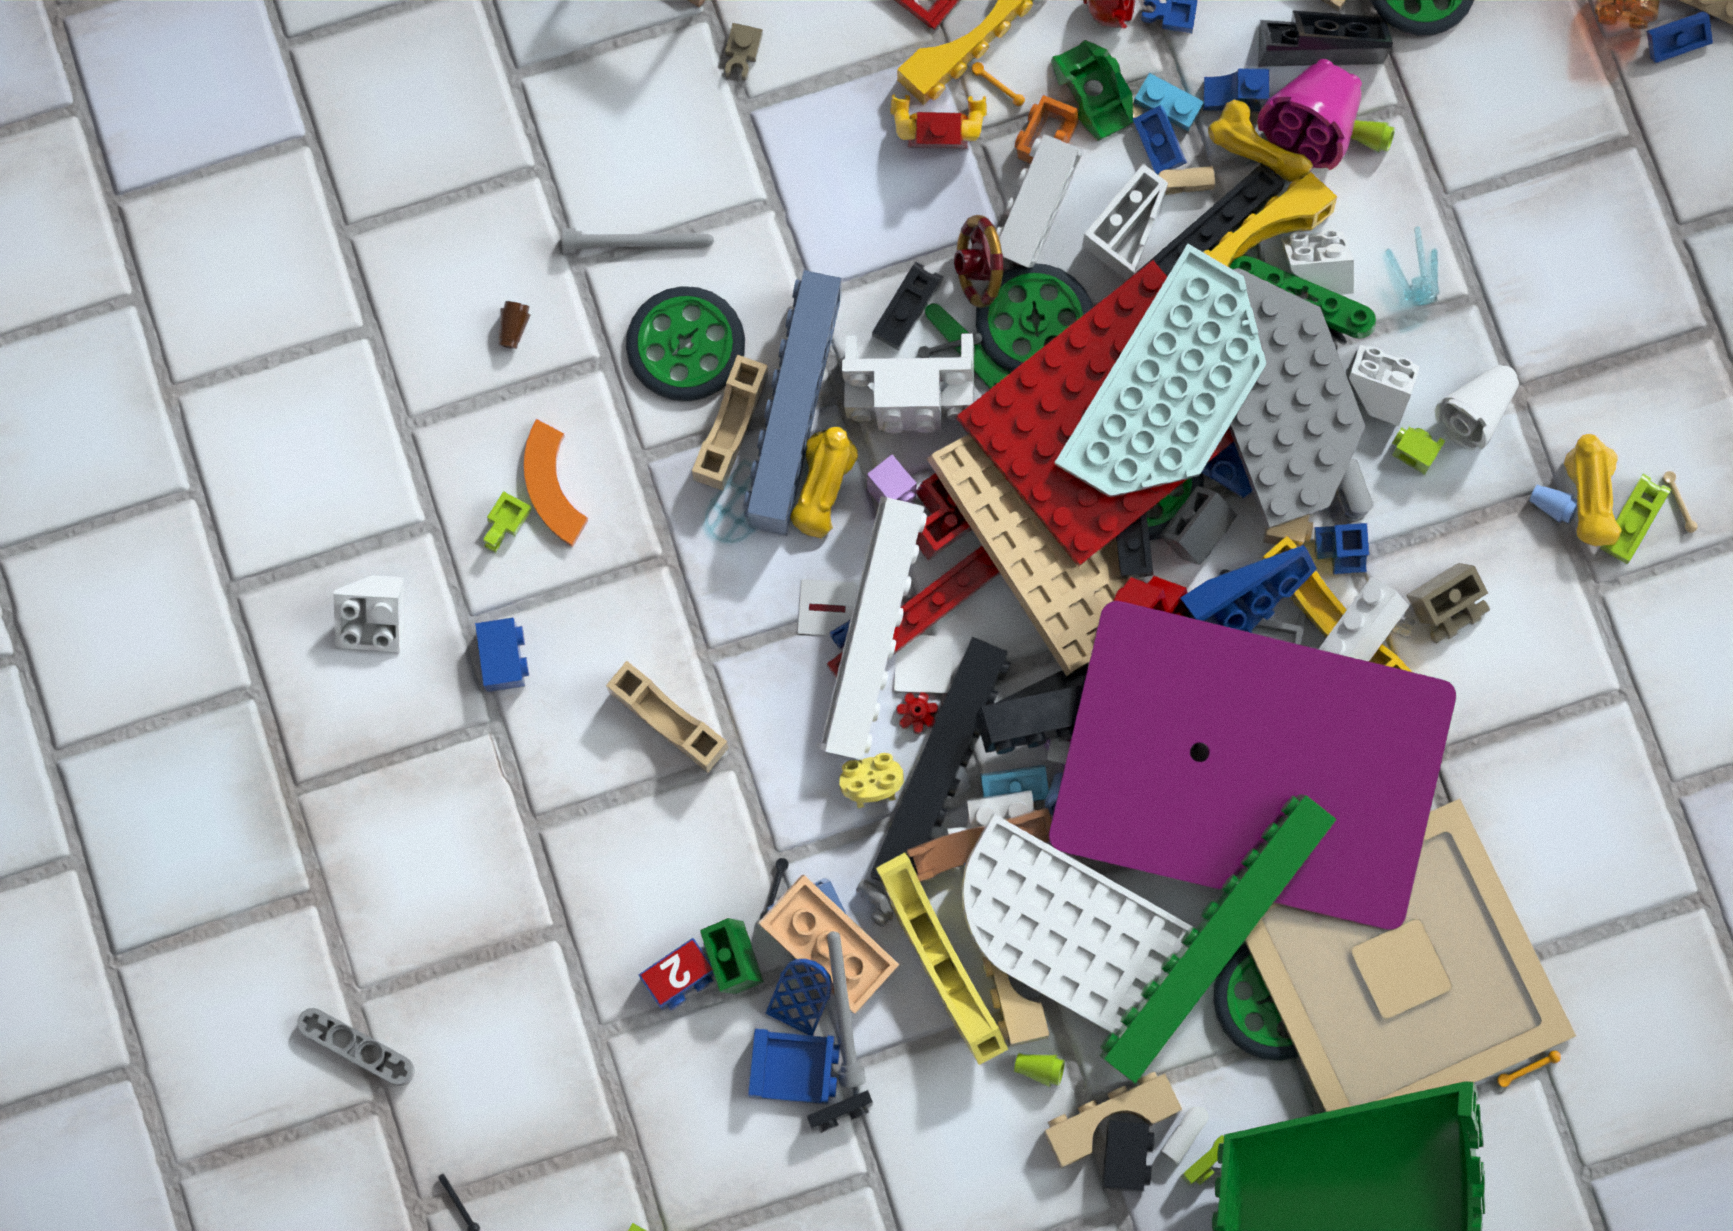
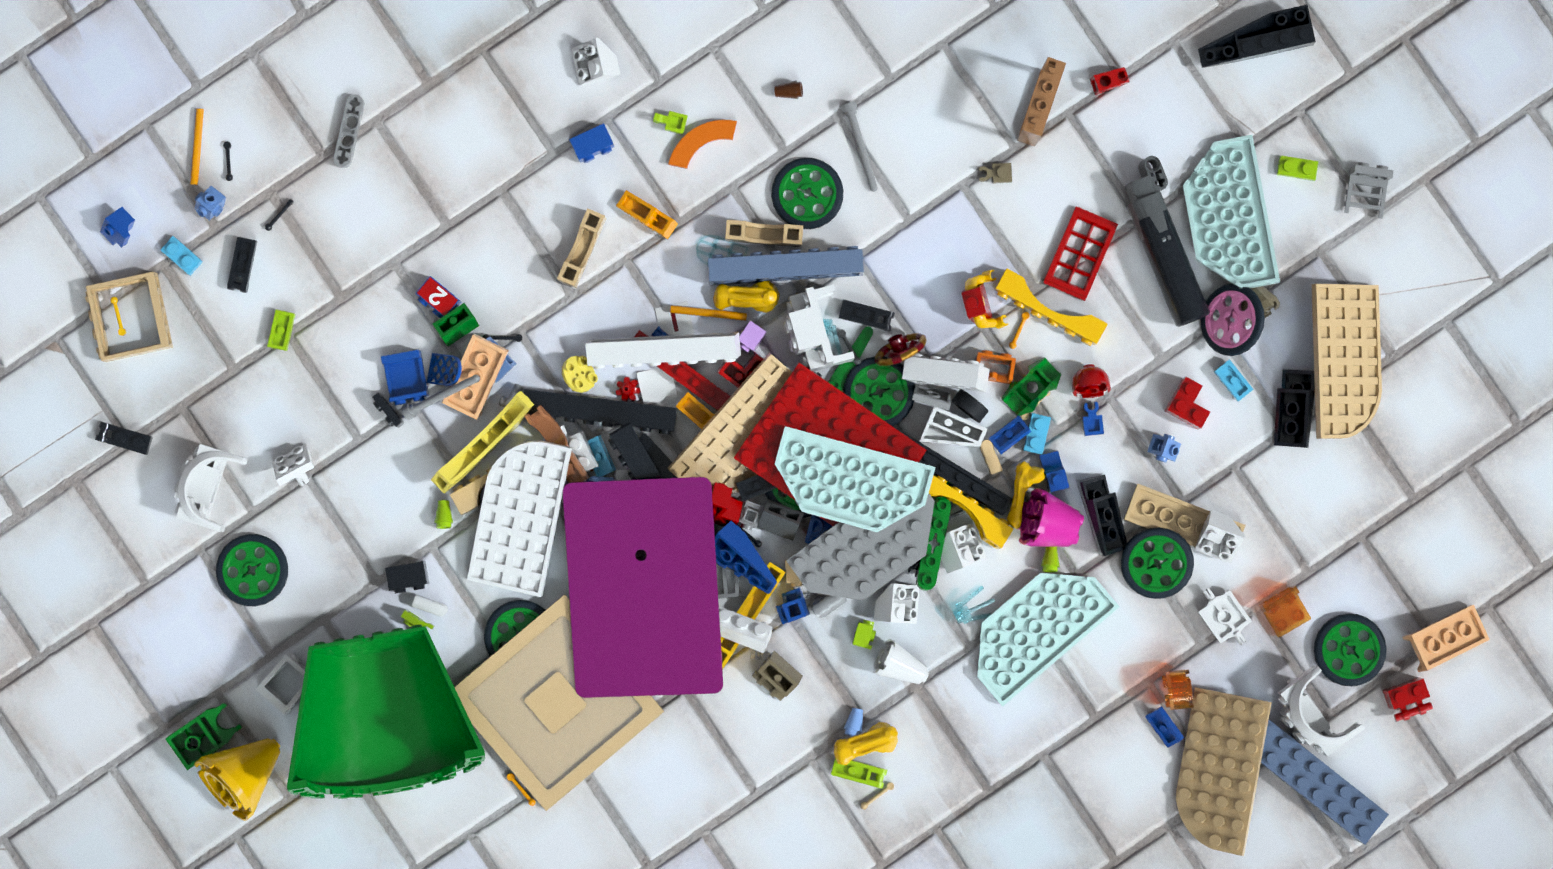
camera: 75 degrees right, 10 degrees up
(643, 600) = (647, 214): none -> light orange slope
(831, 549) = (708, 313): none -> light orange bar
(986, 610) = (694, 410): none -> light orange slope
(1068, 236) = (932, 397): none -> light grey plate
(1097, 184) = (970, 405): none -> black tyre
(1150, 1101) = (441, 581): tan arch -> none
(1178, 568) = (751, 515): none -> light grey window
(1217, 936) = (540, 594): green brick -> none
(1479, 184) = (1038, 629): none -> light aqua plate

